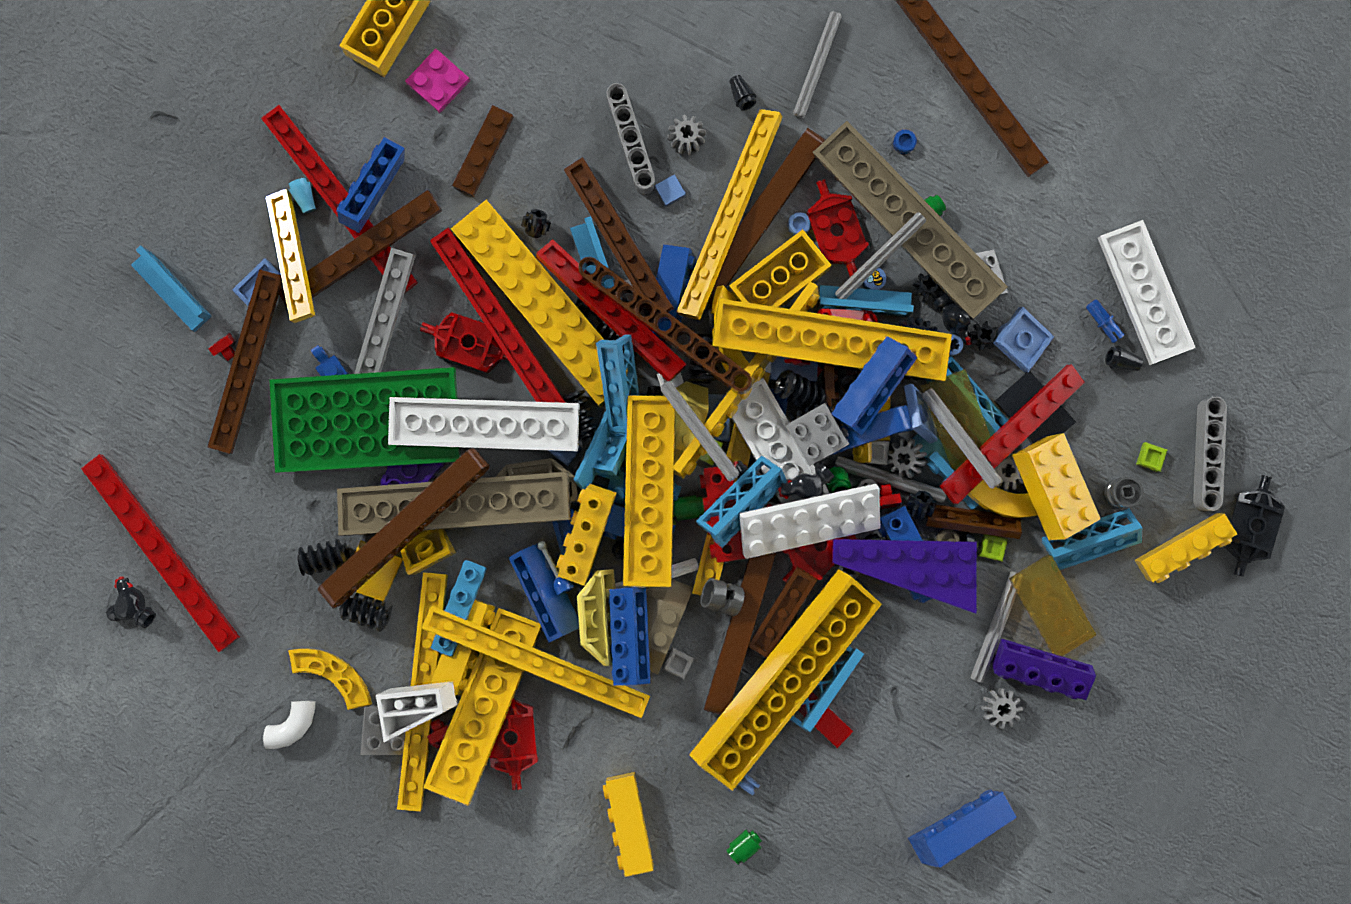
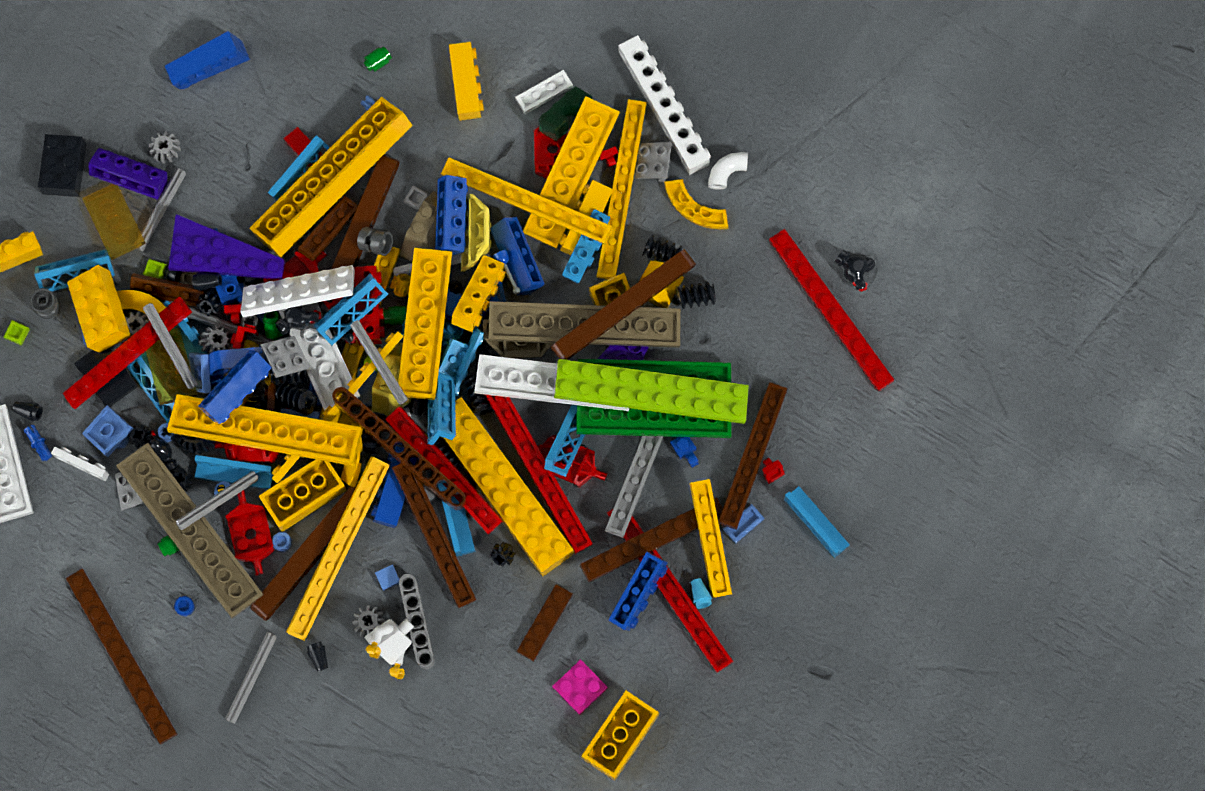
camera: 175 degrees left, 10 degrees down
(365, 421) = (651, 391): none -> lime plate
(387, 811) = (692, 162): none -> white brick
(412, 705) = (624, 173): white wedge -> none
(473, 361) = (559, 443): none -> dark azure fence
(509, 770) = (554, 121): none -> clear green arch
(528, 815) = (544, 92): none -> white plate
(658, 103) = (390, 643): none -> white torso
(685, 546) = (401, 285): none -> yellow gear
(878, 461) = (238, 339): none -> red bracket
(927, 530) = (204, 281): none -> black cone
(1050, 299) = (80, 462): none -> white plate
(1128, 675) = (62, 165): none -> black brick

